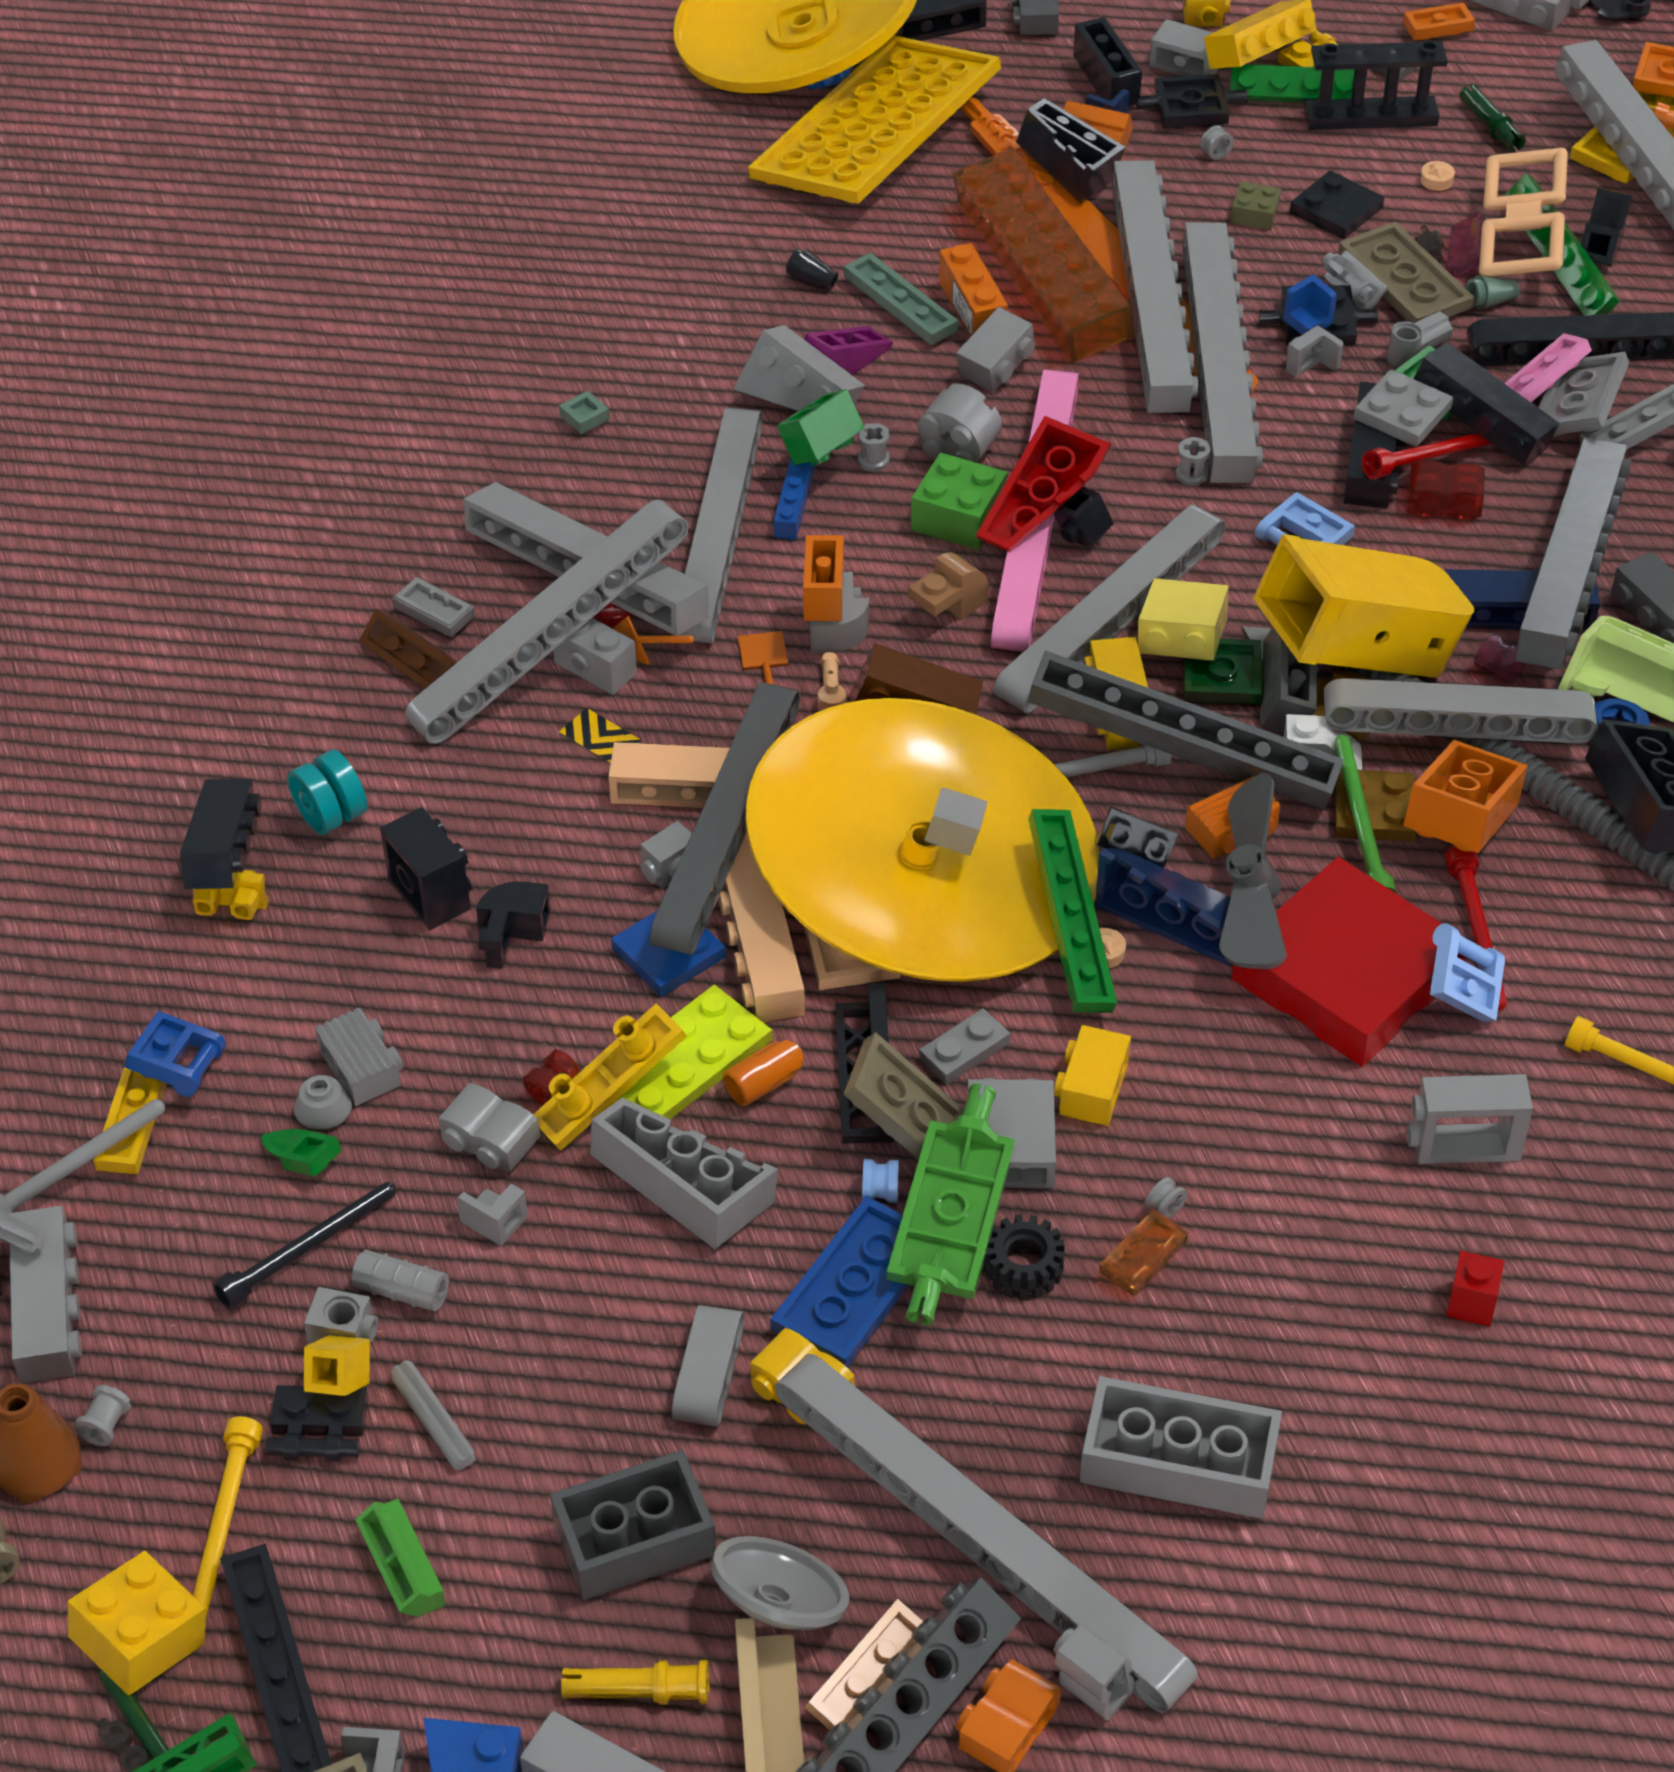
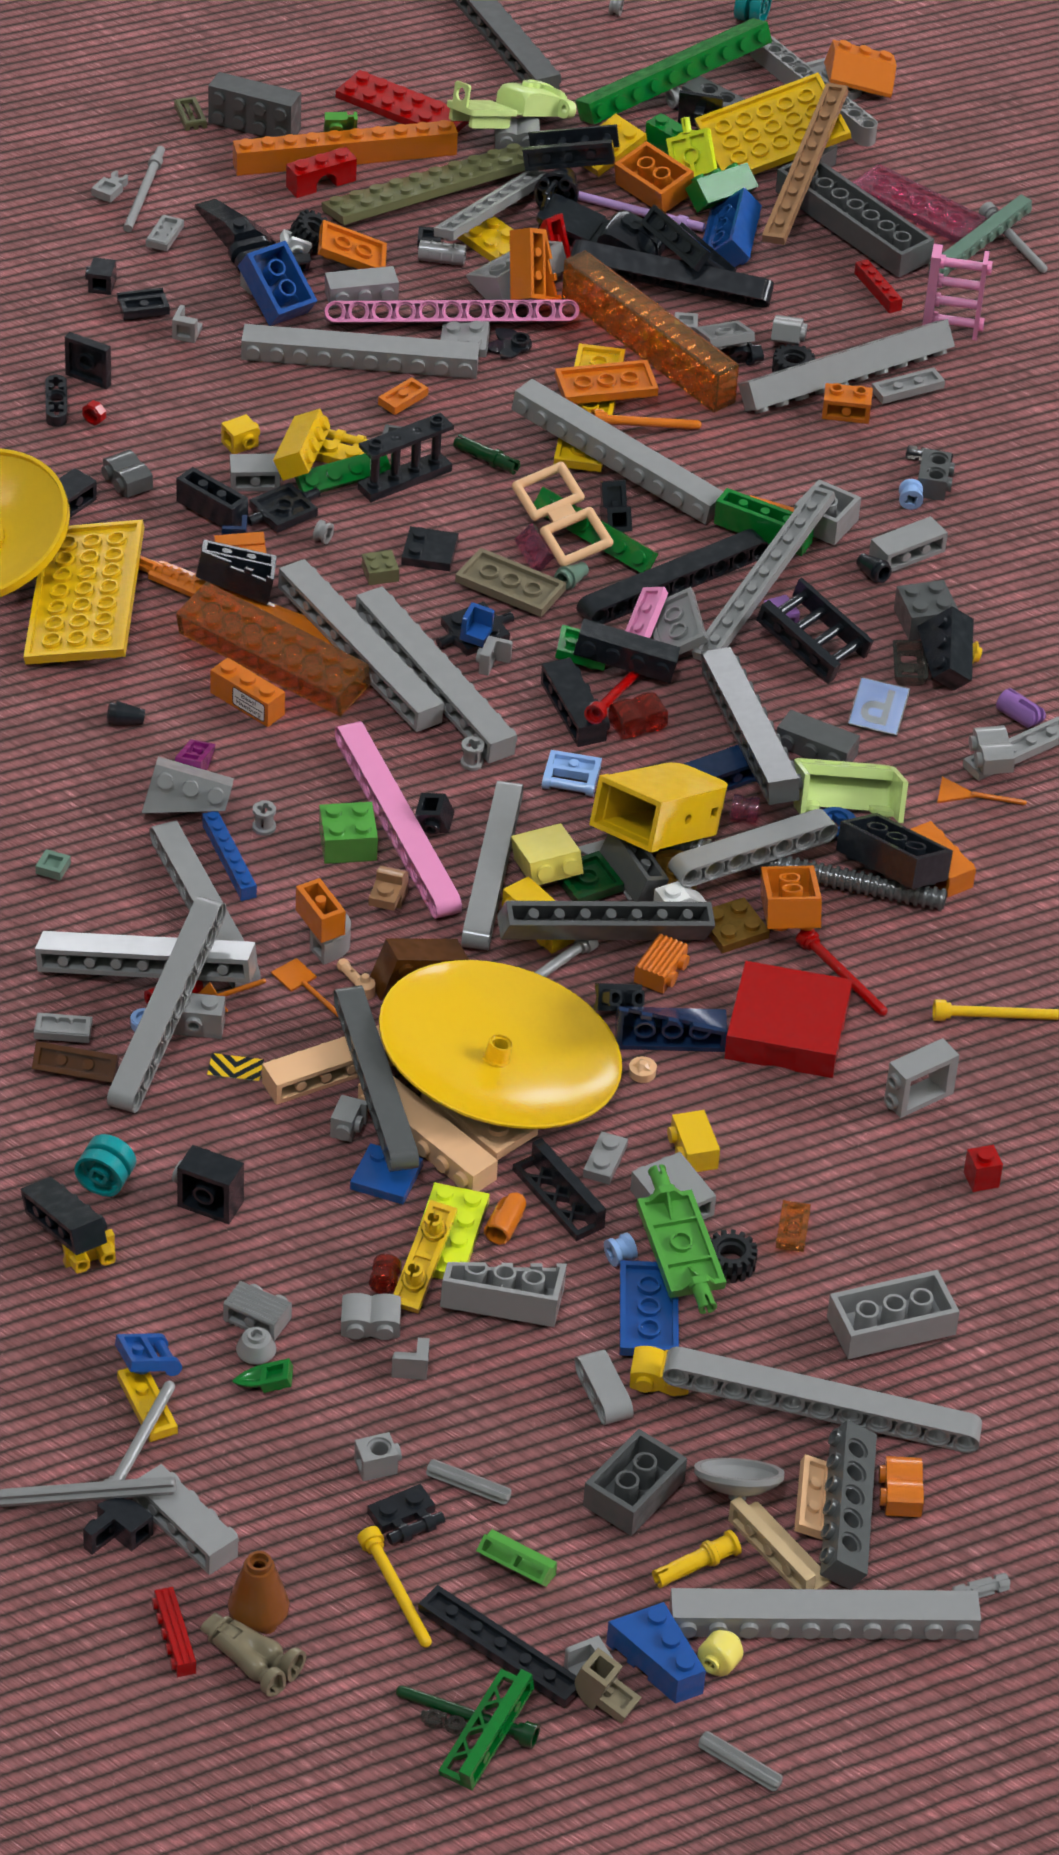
camera: 35 degrees left, 5 degrees down
(102, 1415) = (282, 1560): light grey bush -> none
(136, 1622) = (403, 1653): yellow piece -> none
(235, 1287) = (296, 1465): black piece -> none
(336, 1365) = (398, 1476): yellow brick -> none
(400, 1280) = (391, 1419): light grey axle -> none
(511, 912) = (280, 1191): black brick -> none
(820, 428) = (234, 816): green brick -> none
(897, 1094) = (606, 1195): dark tan plate -> none
(901, 298) = (199, 712): sand green plate -> none
(956, 821) = (521, 1025): light grey panel -> none
(959, 424) = (313, 782): light grey brick -> none
(996, 349) = (294, 724): light grey brick -> none
(1045, 477) = (405, 798): red wedge -> none
(1072, 911) = (615, 1052): green plate -> none
(1093, 1670) = (933, 1440): light grey brick -> none
(1166, 1198) = (784, 1191): light grey bush -> none
(1251, 924) = (685, 957): dark grey piece -> none
(1347, 270) = (477, 593): light grey hinge -> none
(1361, 815) = (734, 931): bright green piece -> none
(1403, 408) = (583, 671): light grey plate -> none
(1411, 338) = (549, 622): light grey piece -> none
(1431, 242) = (512, 553): clear smoke plate -> none
(1437, 176) = (479, 506): light nougat tile -> none
(1461, 983) = (863, 999): light blue plate -> none

